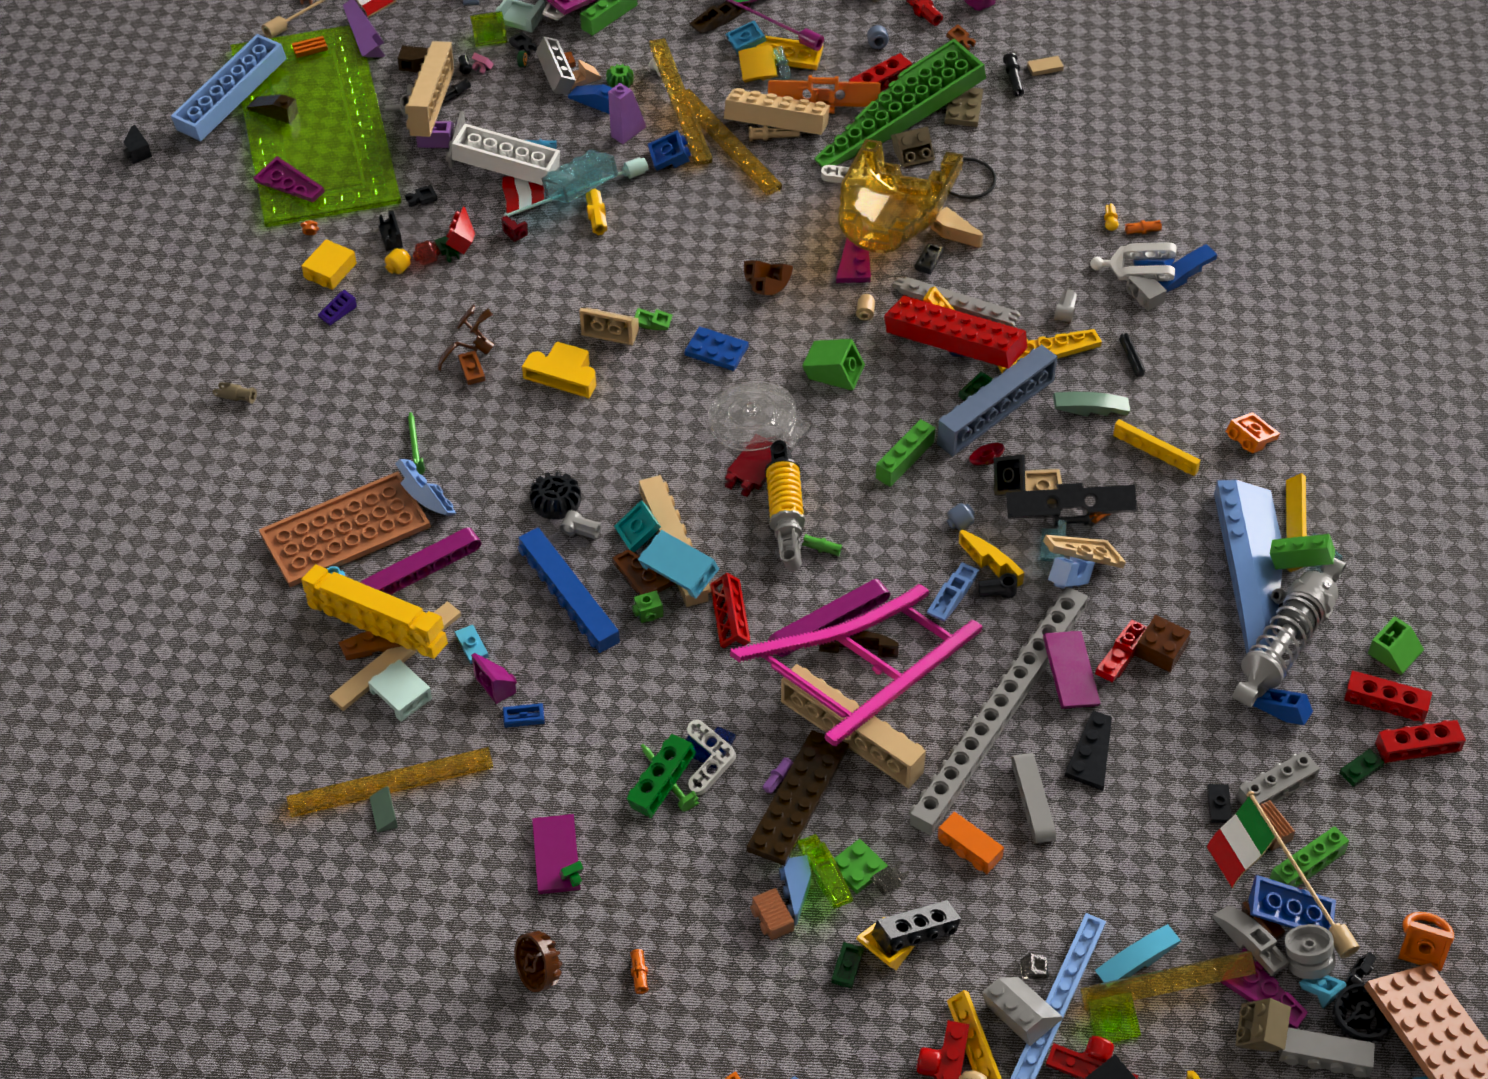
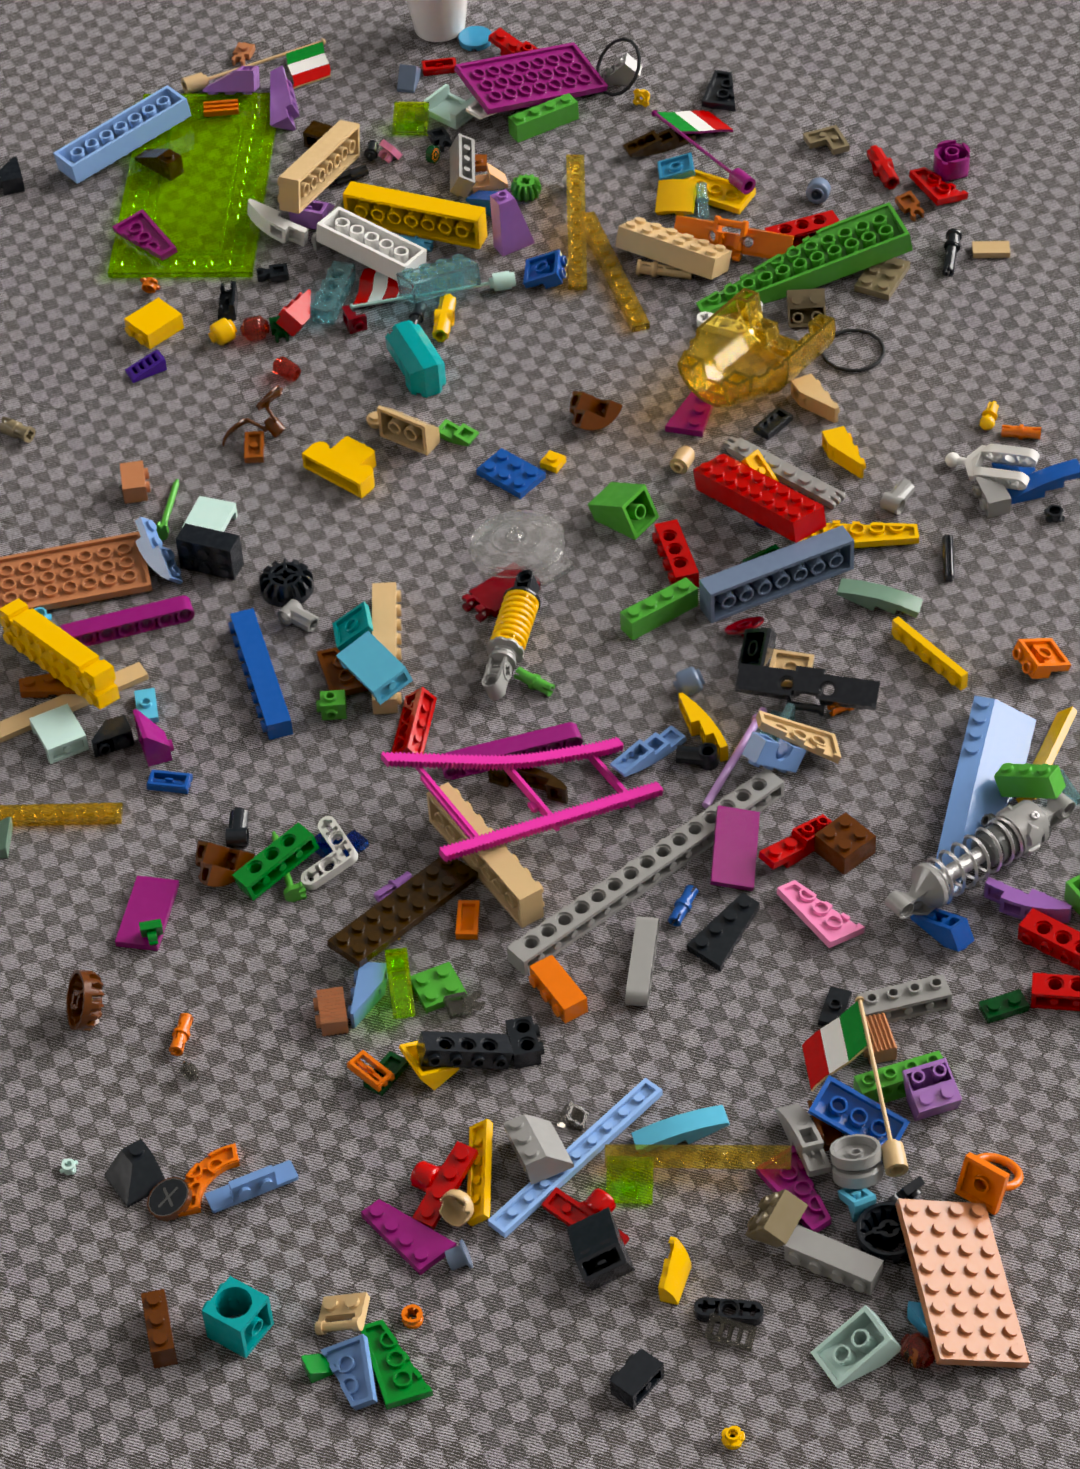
camera: 20 degrees right, 5 degrees down
(316, 18) = (243, 79): none -> medium lavender slope
(373, 423) = (134, 481): none -> nougat brick
(400, 148) = (275, 226): none -> white slope
(453, 681) = (112, 736): none -> black slope
(459, 449) = (212, 513): none -> light aqua panel
(471, 286) = (286, 369): none -> clear red brick
(474, 479) = (209, 551): none -> black brick
(485, 205) = (333, 292): none -> clear light blue brick
(535, 118) = (418, 214): none -> yellow brick
(570, 216) = (417, 314): none -> black pin
(572, 320) = (372, 420): none -> tan plate
(590, 256) = (416, 359): none -> teal brick
(607, 789) = (219, 863): none -> reddish brown brick
(610, 753) = (237, 834): none -> black piece
(663, 1008) = (189, 1071): none -> clear smoke plate
(749, 330) = (553, 461): none -> yellow plate
(823, 967) = (381, 1081): none -> orange tile
(857, 792) = (467, 920): none -> orange tile
(897, 397) = (675, 552): none -> red brick
(965, 901) = (524, 1041): none -> black brick
(978, 20) = (935, 188): none -> red wing
(1000, 272) = (840, 449): none -> yellow slope
(1034, 541) = (731, 762): none -> lavender bar
(1046, 734) = (683, 905): none -> blue pin
(1176, 722) = (818, 915): none -> bright pink wing
(1203, 297) = (1054, 514): none -> black plate
(1339, 668) = (1018, 904): none -> medium lavender slope
(1342, 865) = (931, 1089): none -> medium lavender slope

